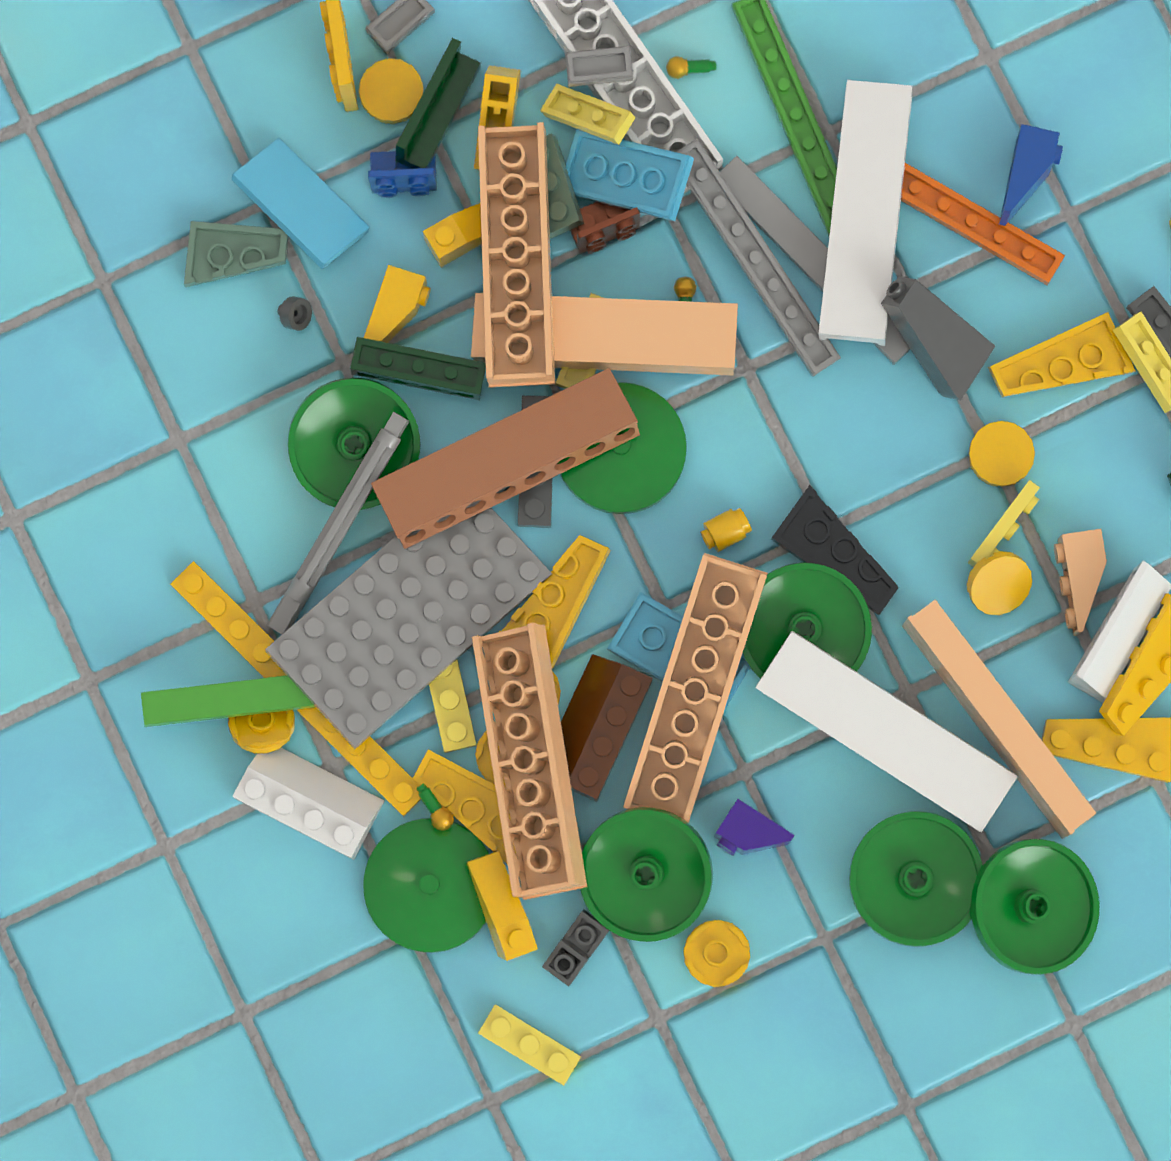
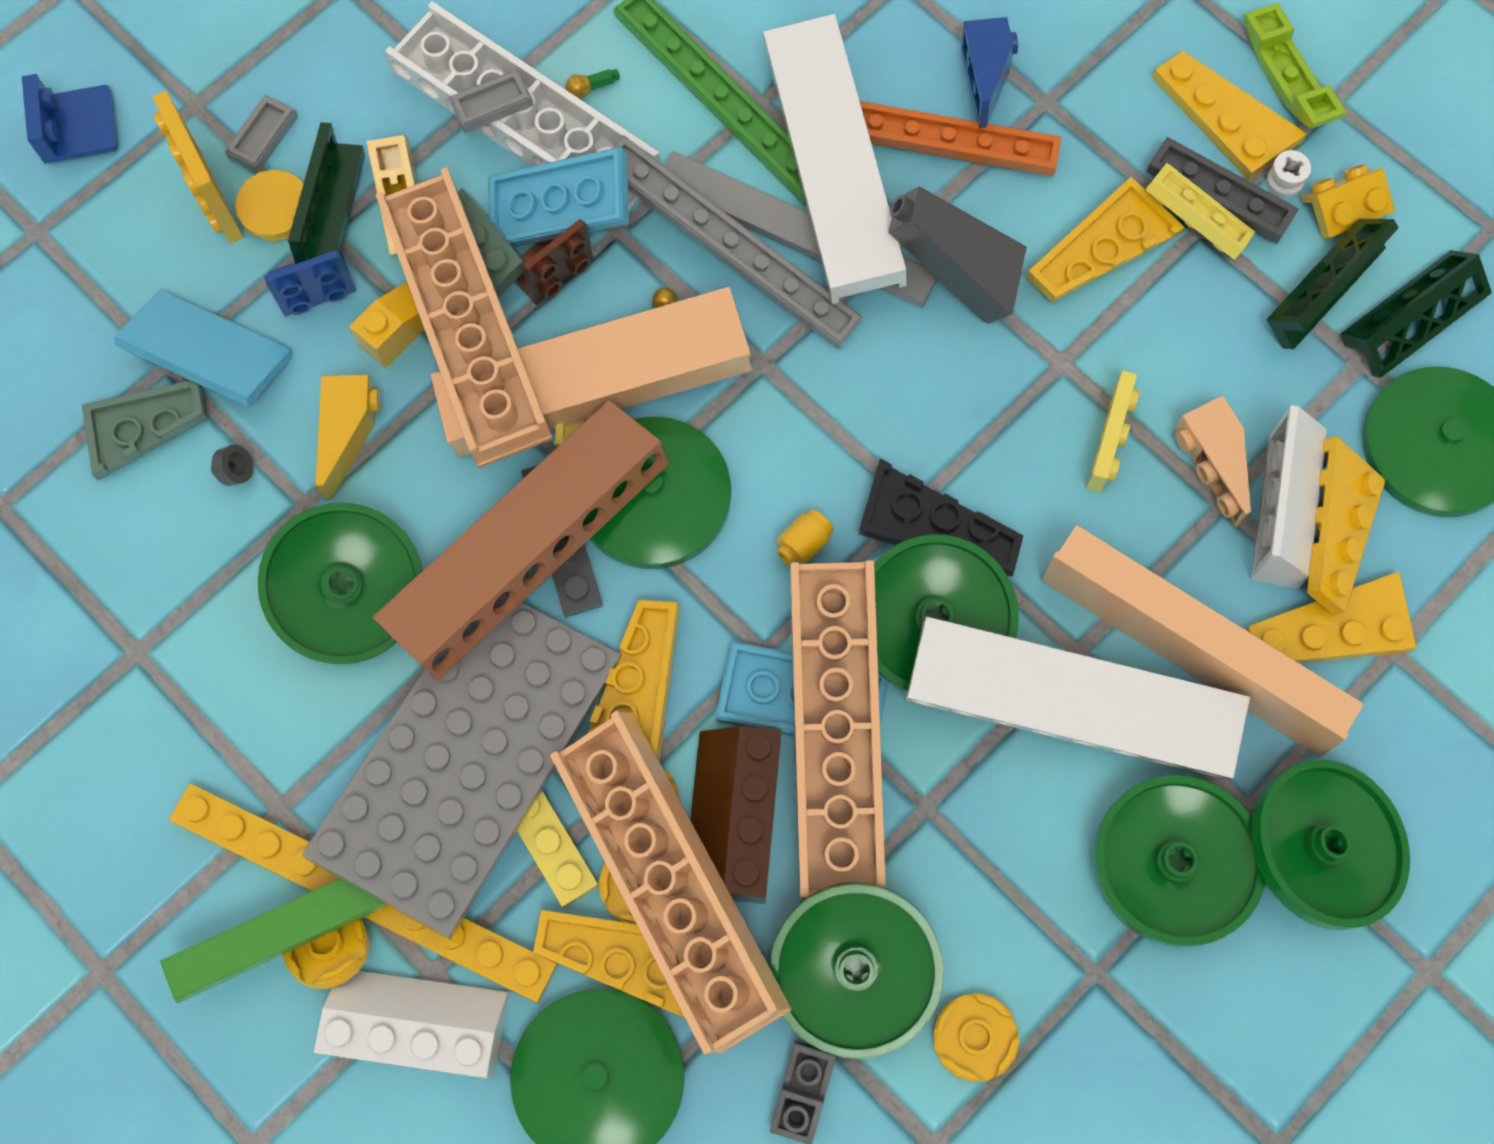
camera: 20 degrees left, 10 degrees down
(338, 524) = (350, 679): light grey piece -> none
(418, 368) = (392, 476): dark green fence -> none
(440, 816) = (582, 986): piece -> none
(502, 911) = (696, 1077): yellow slope -> none
(587, 114) = (496, 153): light yellow plate -> none
(749, 831) = (962, 871): dark purple slope -> none
(999, 583) = (1134, 492): yellow tile -> none
(1001, 454) = (1076, 360): yellow tile -> none

